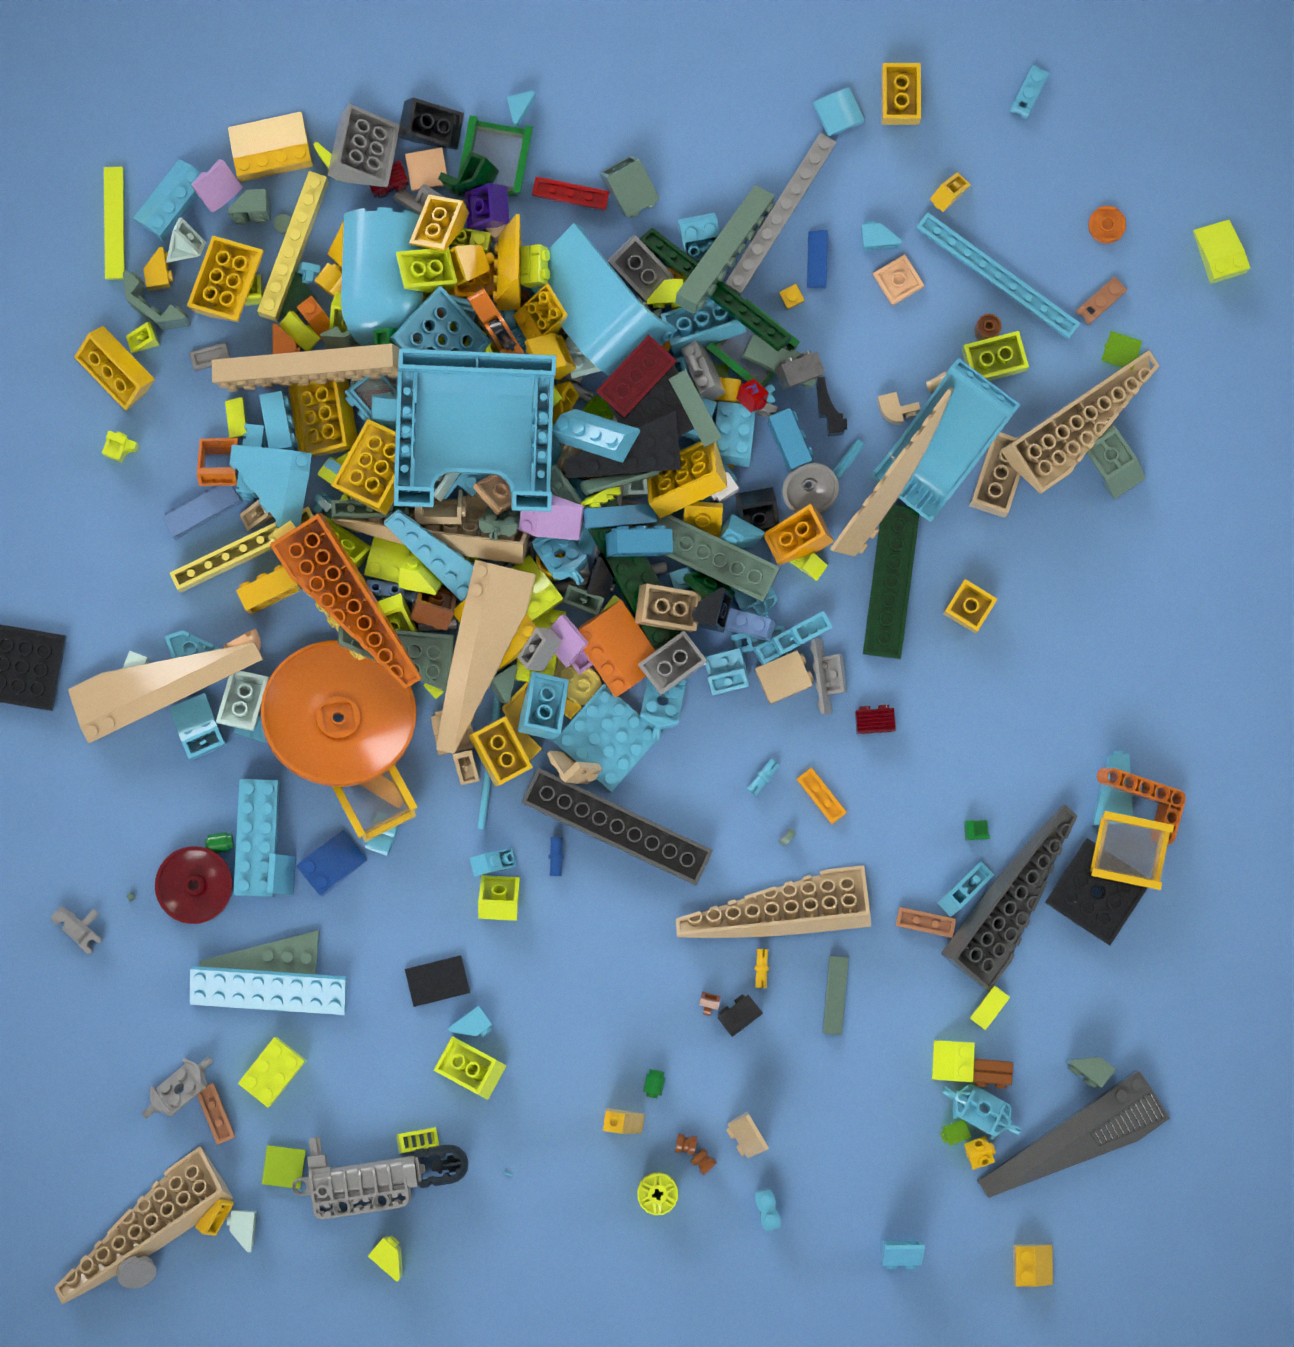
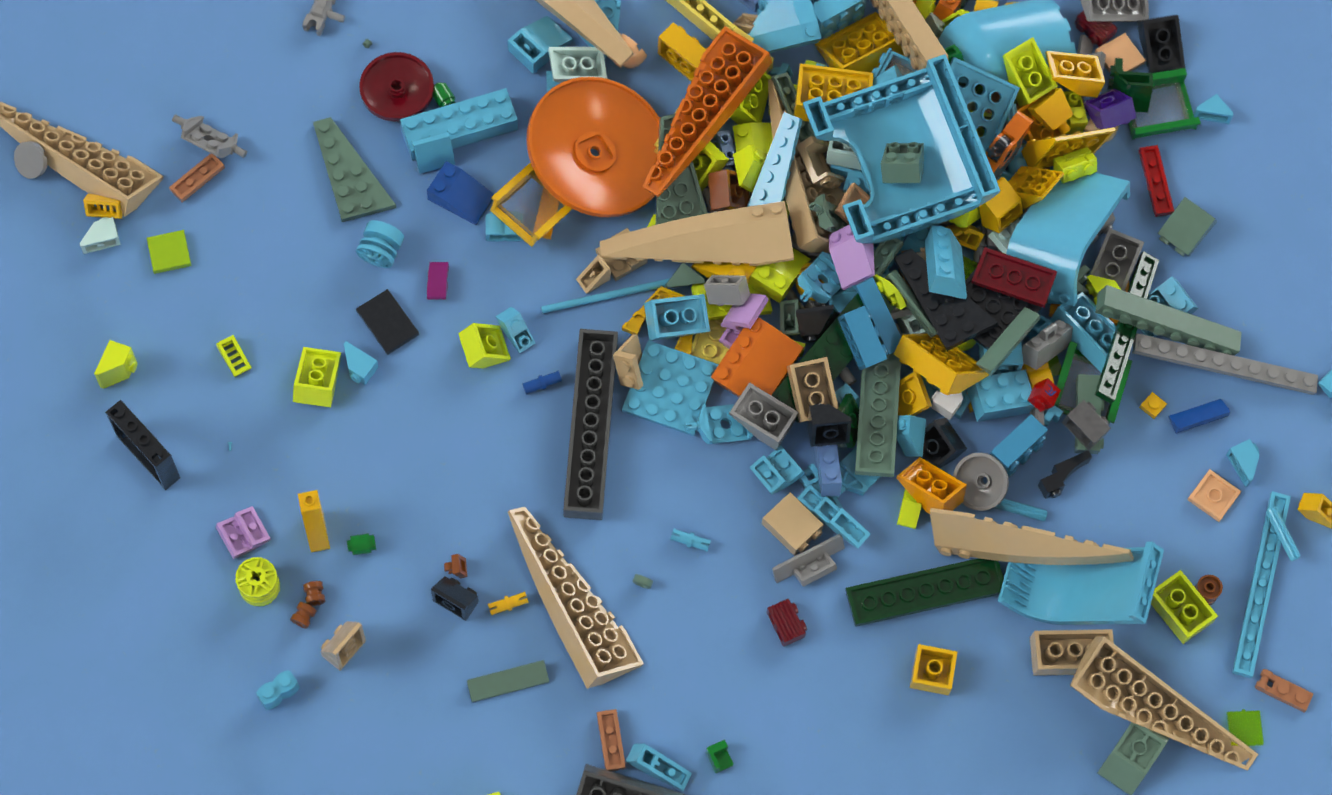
camera: 65 degrees right, 15 degrees down
(267, 990) = (325, 181): plate -> none
(272, 1072) = (252, 209): neon yellow brick -> none
(359, 961) = (380, 244): none -> medium azure wheel
(374, 1179) = (179, 321): light grey piece -> none
(414, 918) = (437, 280): none -> magenta slope
(483, 432) = (902, 162): none -> sand green slope
(486, 1258) = (143, 445): none -> black window
(500, 751) = (619, 295): yellow brick -> none
(599, 1190) = (243, 532): none -> lavender slope
(821, 795) = (694, 600): light orange tile -> none
(893, 412) = (1091, 528): tan brick -> none
(961, 236) = (1283, 533): none -> medium azure axle

